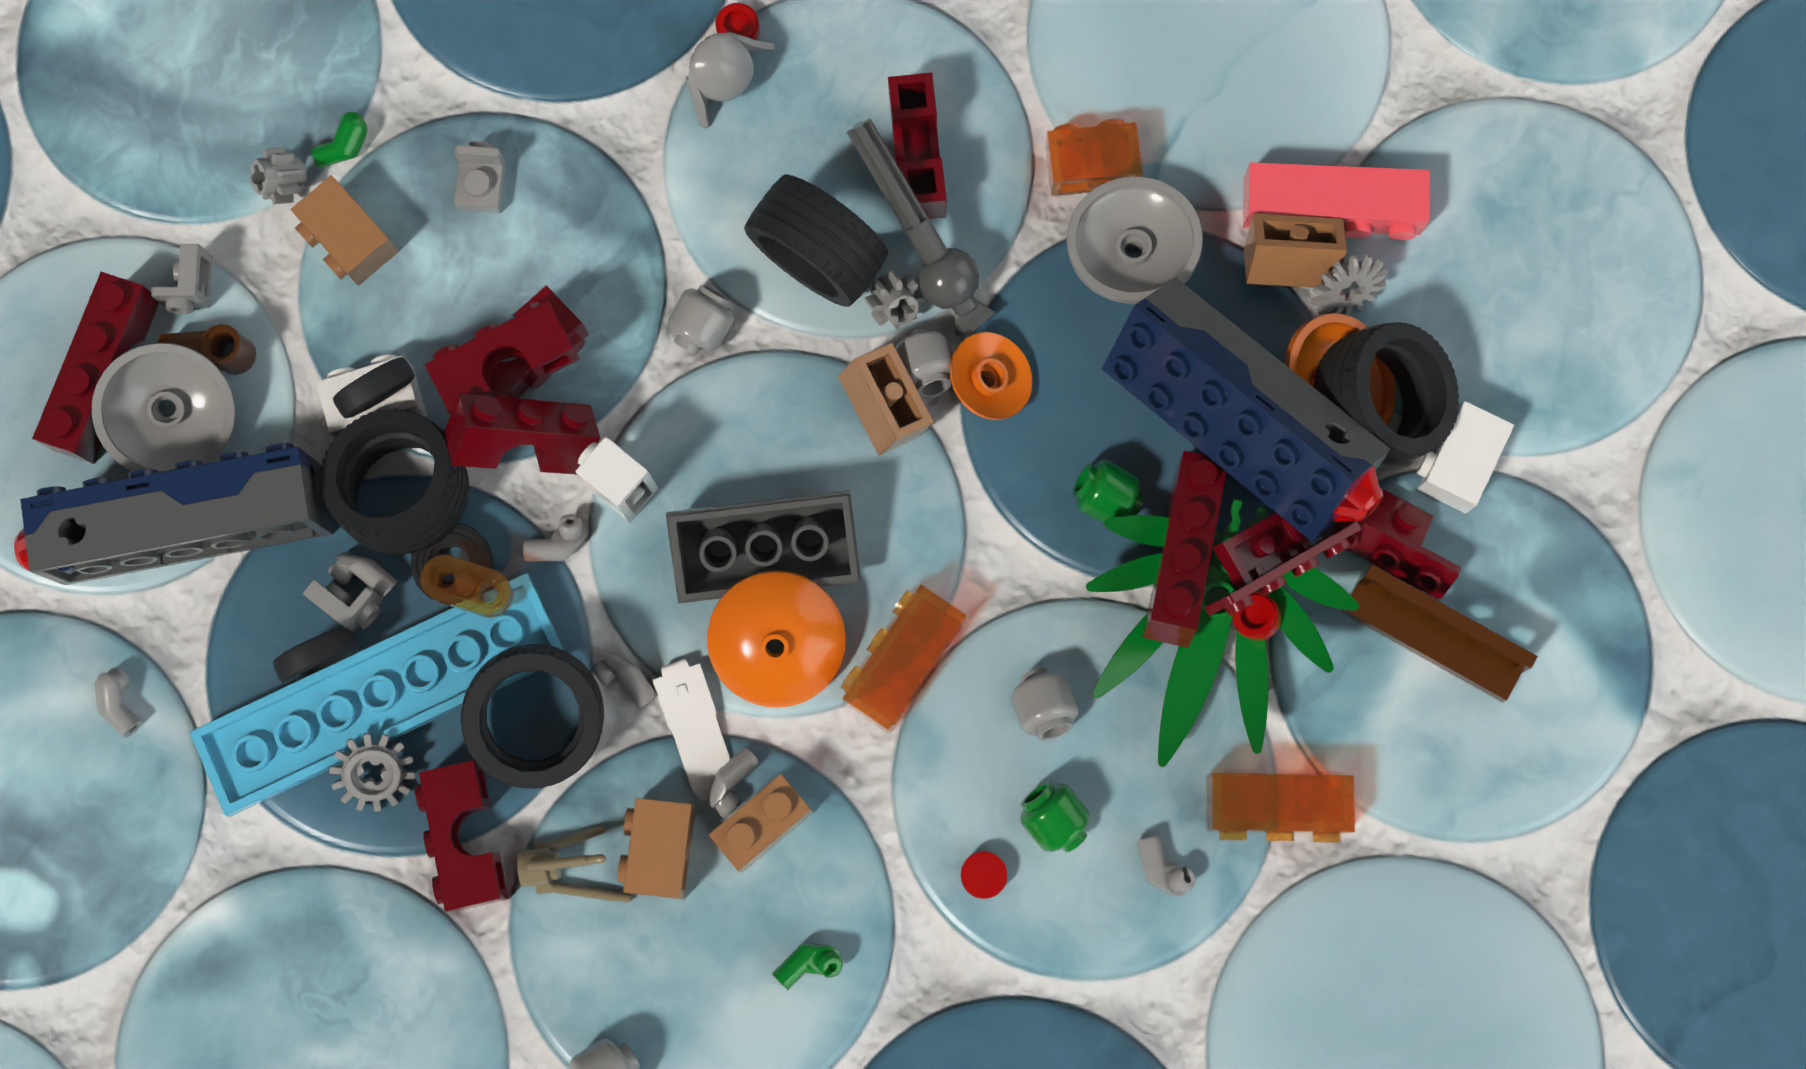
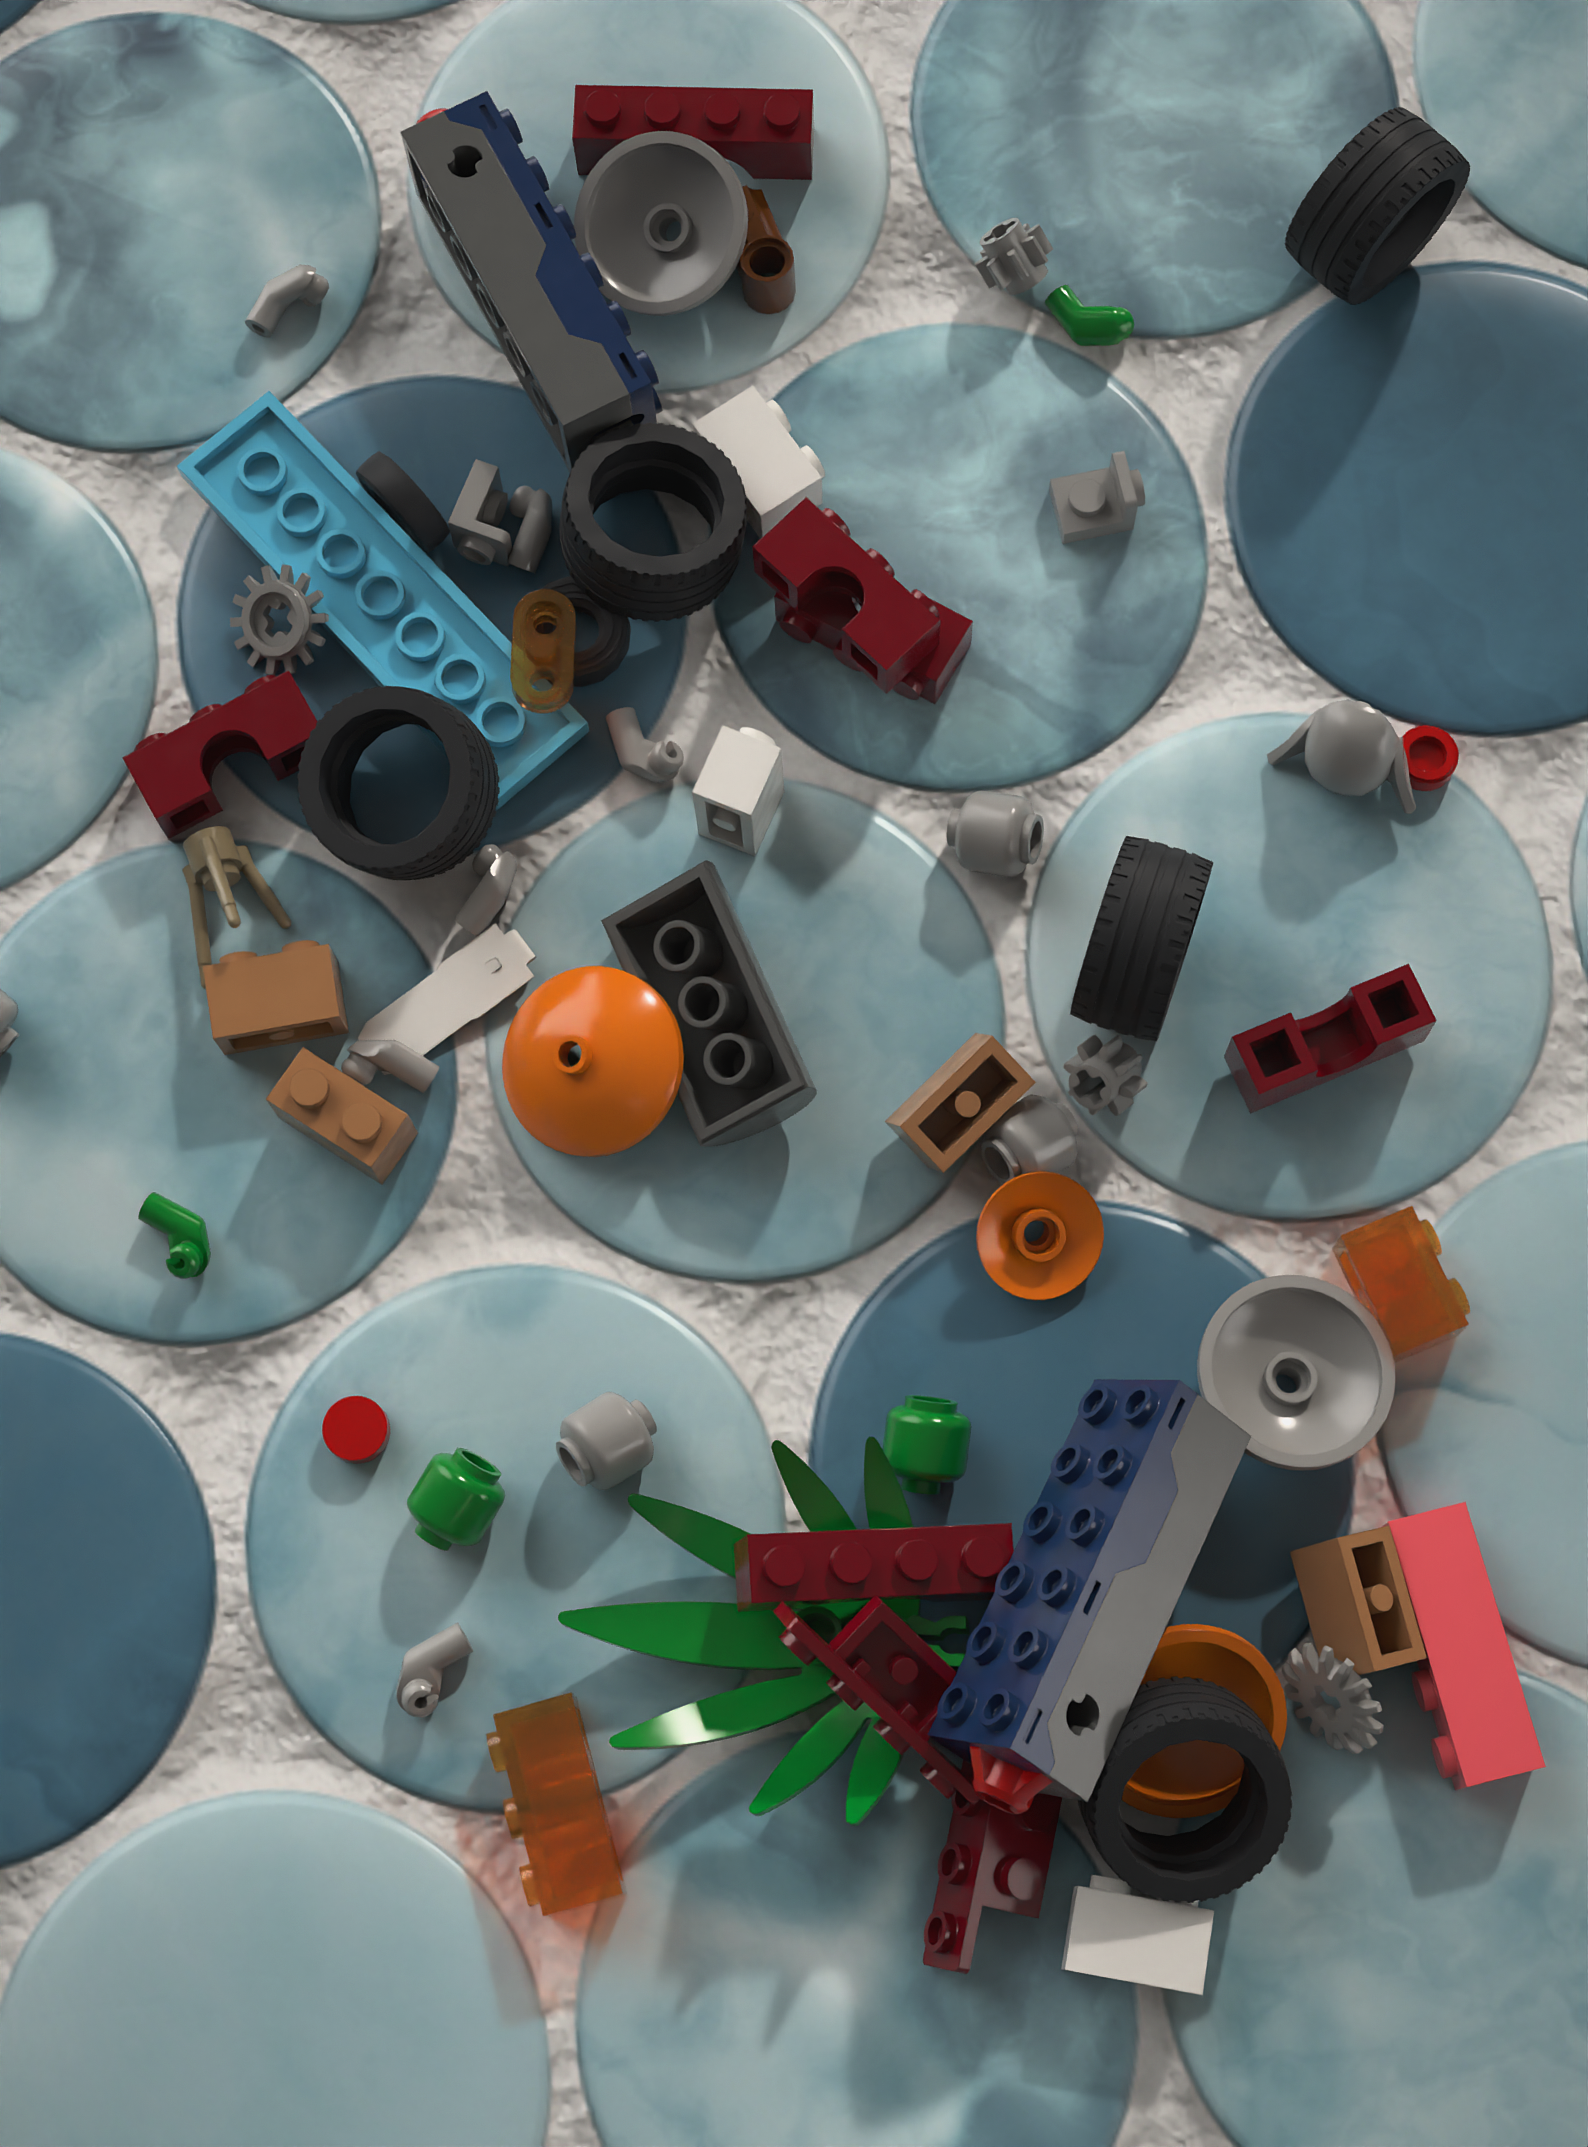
camera: 75 degrees right, 5 degrees down
(193, 280) = (844, 205): light grey bracket -> none
(344, 230) = (967, 358): medium nougat brick -> none
(373, 387) = (757, 448): black tyre -> none
(489, 426) = (753, 607): dark red arch -> none
(902, 657) = (615, 1233): clear orange brick -> none
(947, 274) = (1159, 1131): dark grey piece -> none
(1259, 619) = (806, 1698): red tile -> none
(1438, 633) = (865, 1968): reddish brown fence -> none

